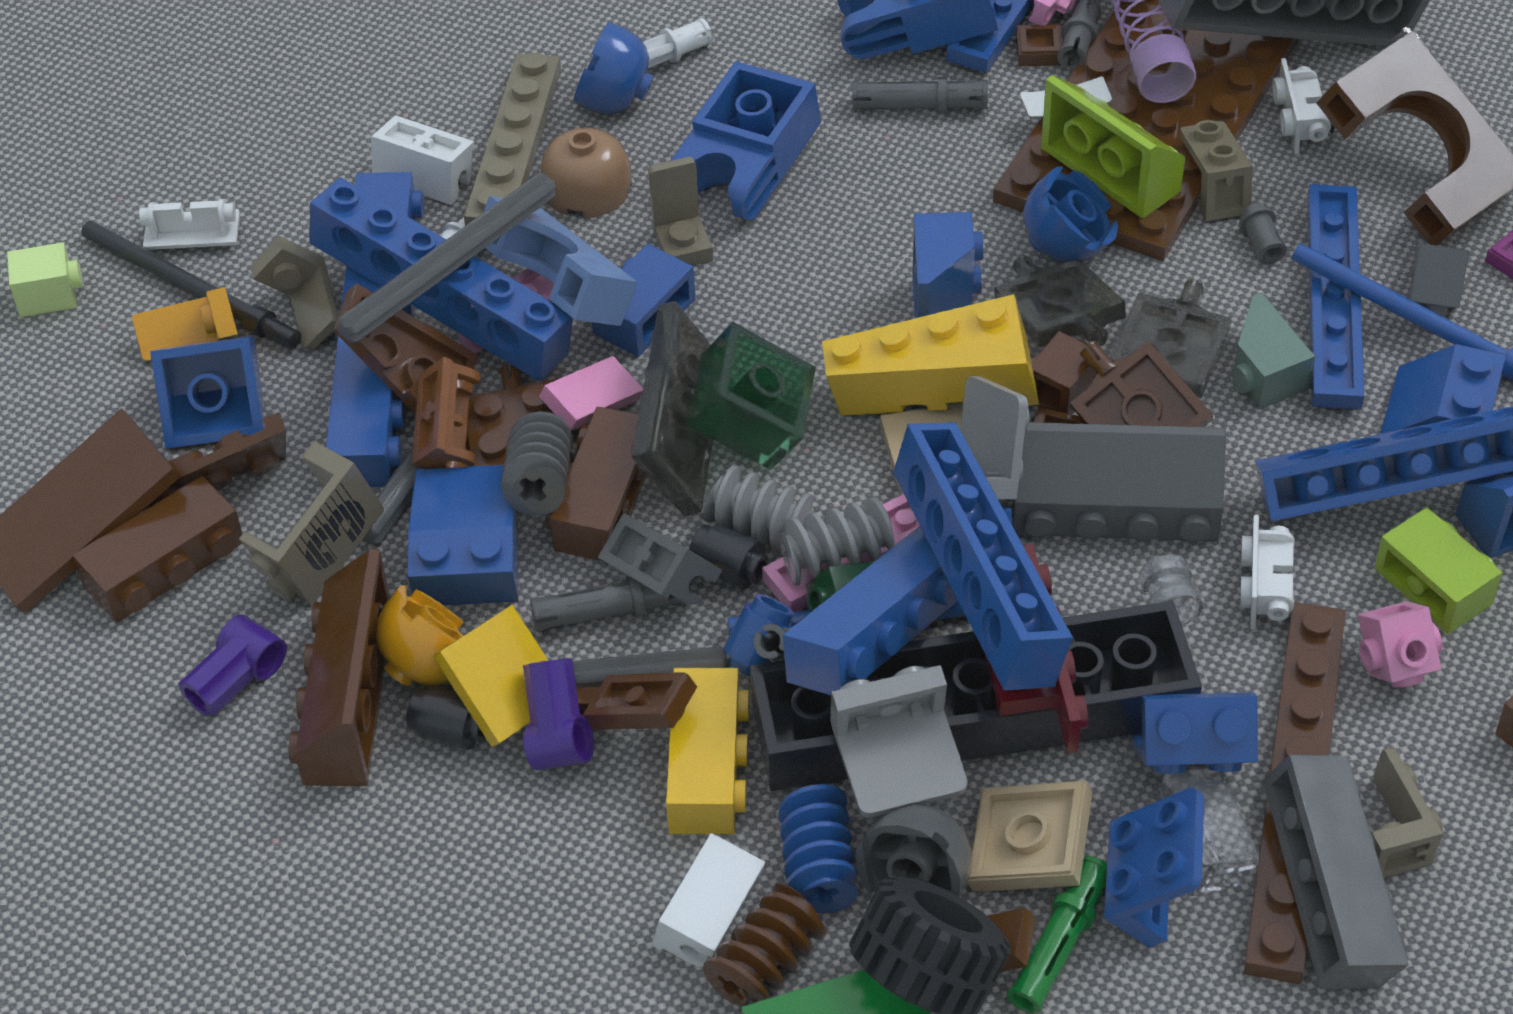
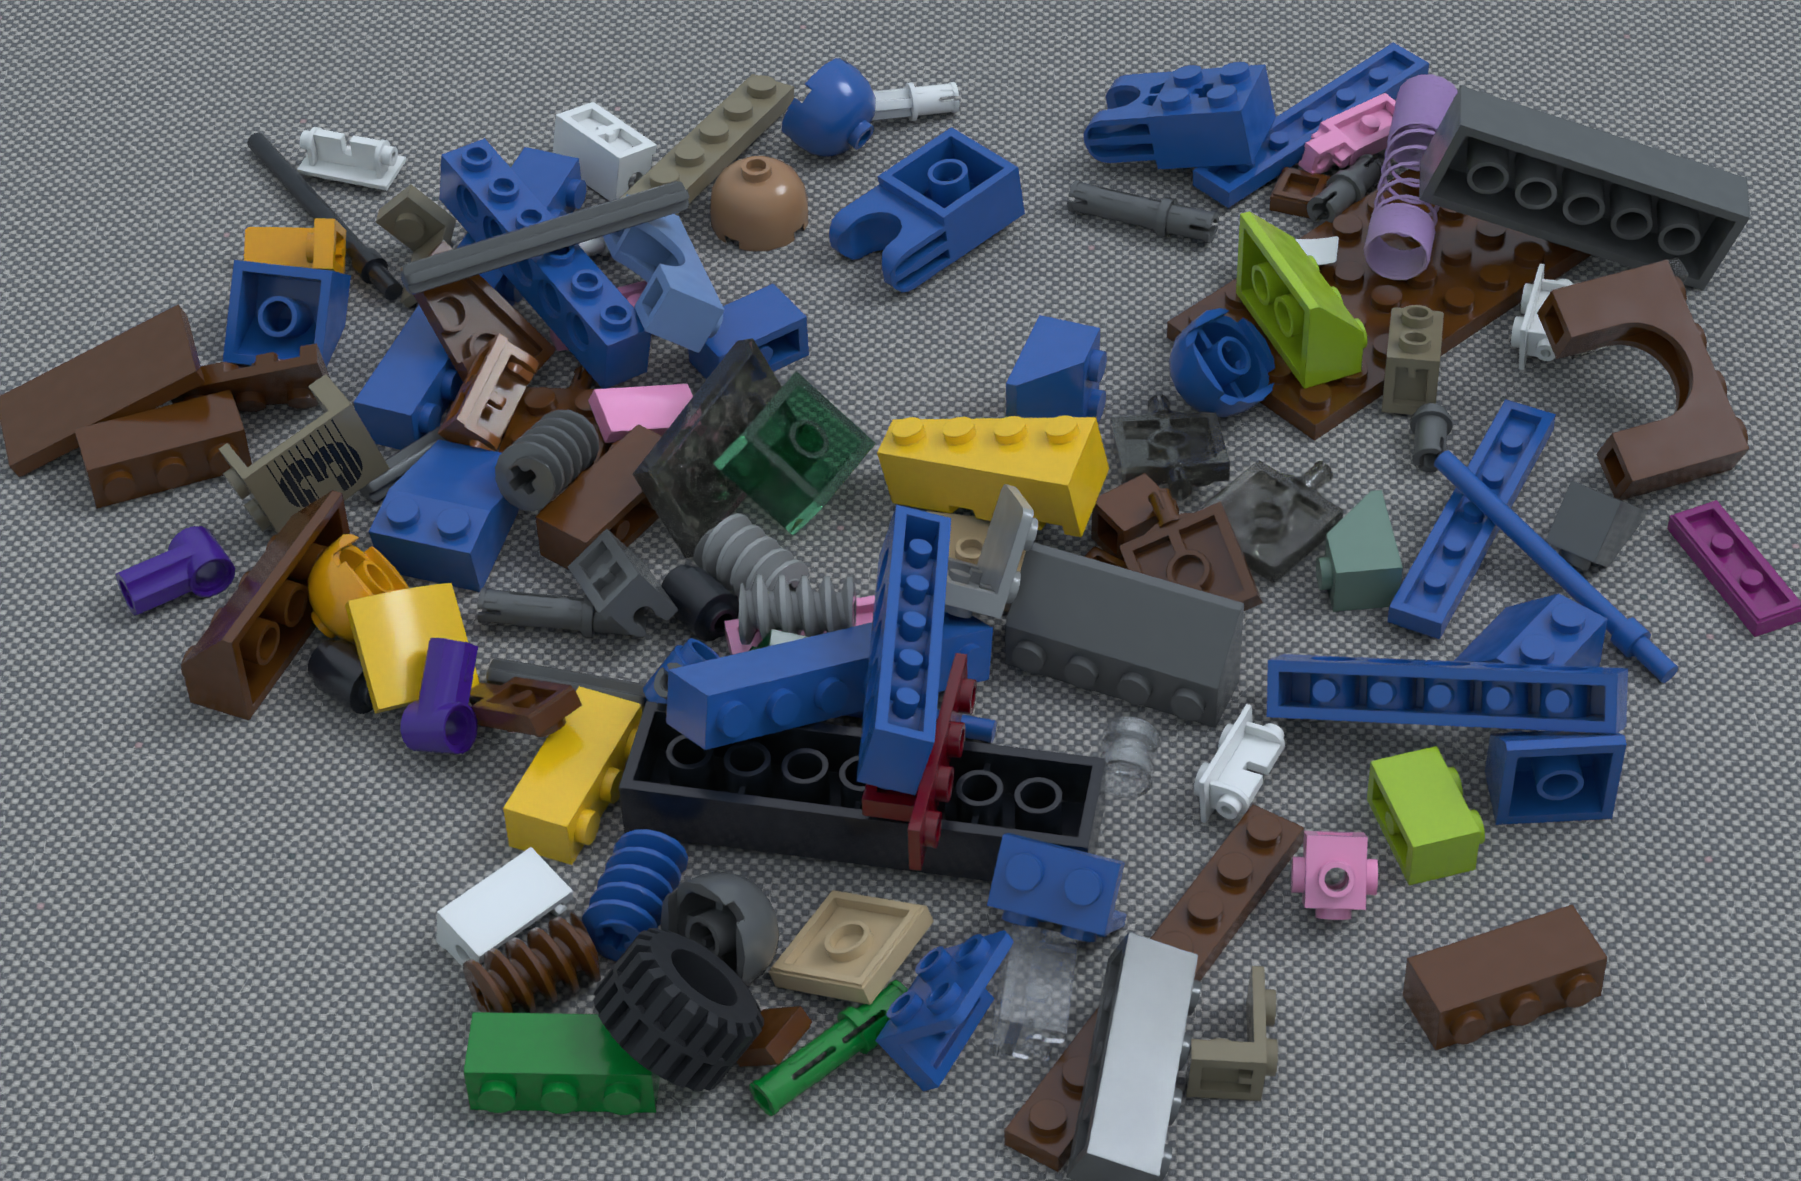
camera: 20 degrees right, 5 degrees down
(43, 279) = (185, 175): yellowish green brick -> none
(676, 211) = (823, 262): dark tan bracket -> none
(897, 741) = (742, 804): light grey bracket -> none

